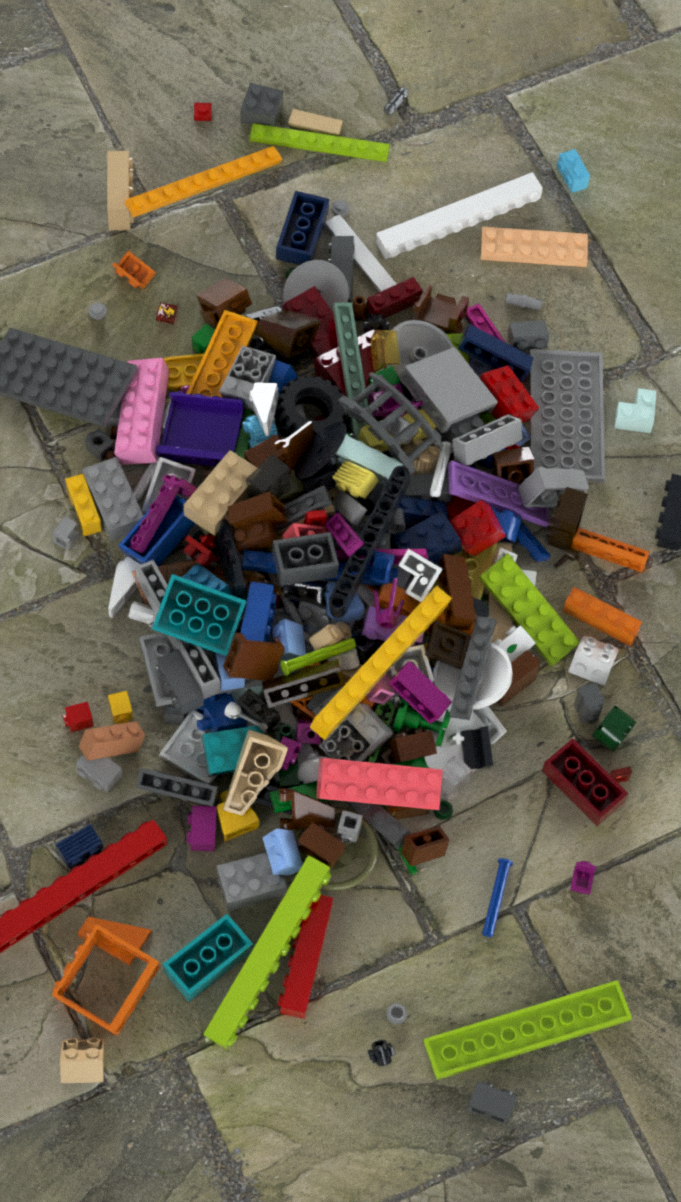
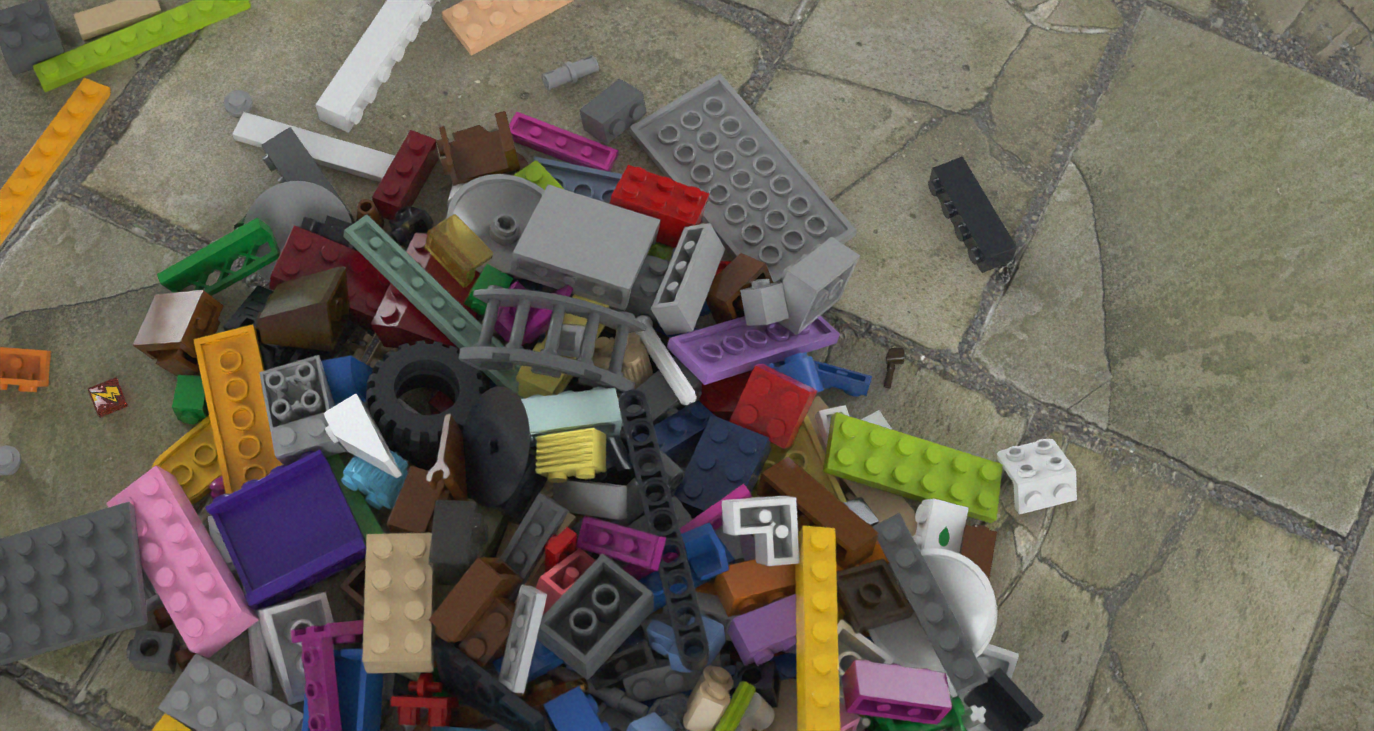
camera: 35 degrees left, 0 degrees up
(262, 543) = (522, 638): none -> light grey tile
(269, 278) = (222, 254): none -> green fence
(302, 228) = (211, 161): dark blue brick -> none
(330, 299) = (332, 228): none -> black plate
(387, 618) = (772, 616): magenta plant -> none
(494, 352) = (593, 159): dark blue brick -> none
(517, 477) = (764, 303): none -> light grey brick
(566, 518) = (863, 313): dark brown piece -> none
(585, 782) = (1170, 649): dark red brick -> none
(589, 703) = (1089, 538): dark grey brick -> none
(602, 616) = (1002, 410): orange brick -> none
(608, 552) = (935, 321): orange fence -> none
(614, 728) = (1143, 548): dark green brick -> none
(621, 774) = (1198, 605): clear red tile -> none
(637, 416) = (828, 119): light aqua brick -> none

